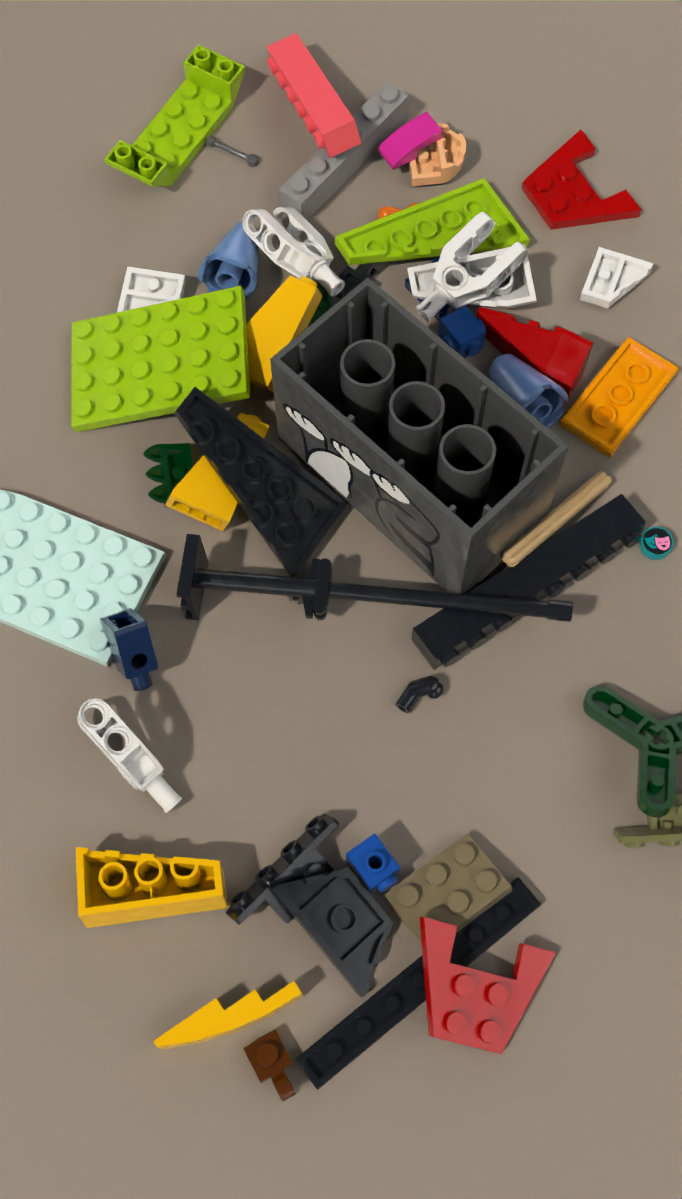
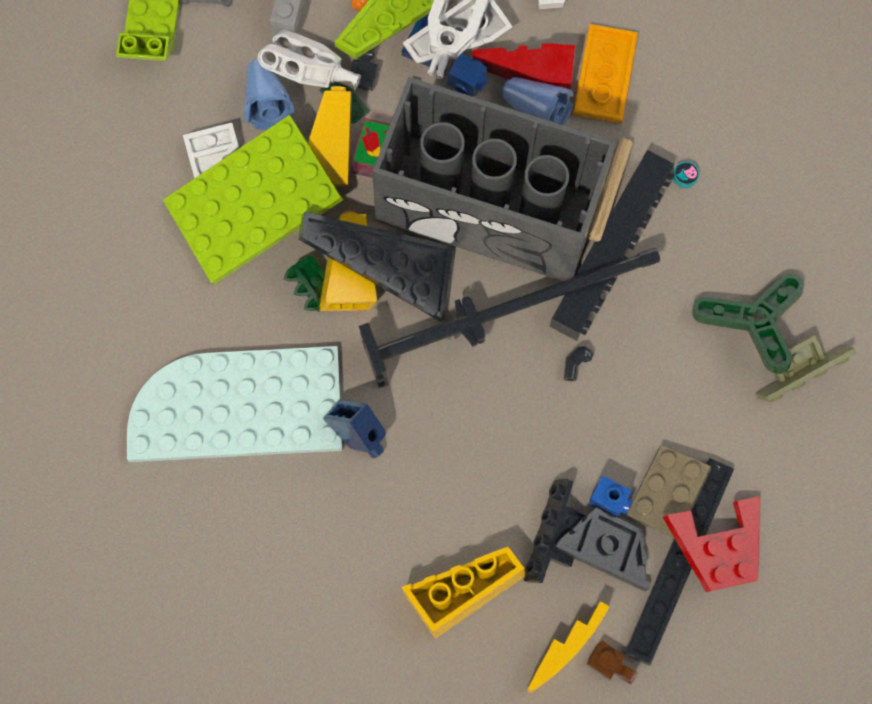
camera: 30 degrees left, 5 degrees up
(134, 761) = (402, 508): white piece -> none

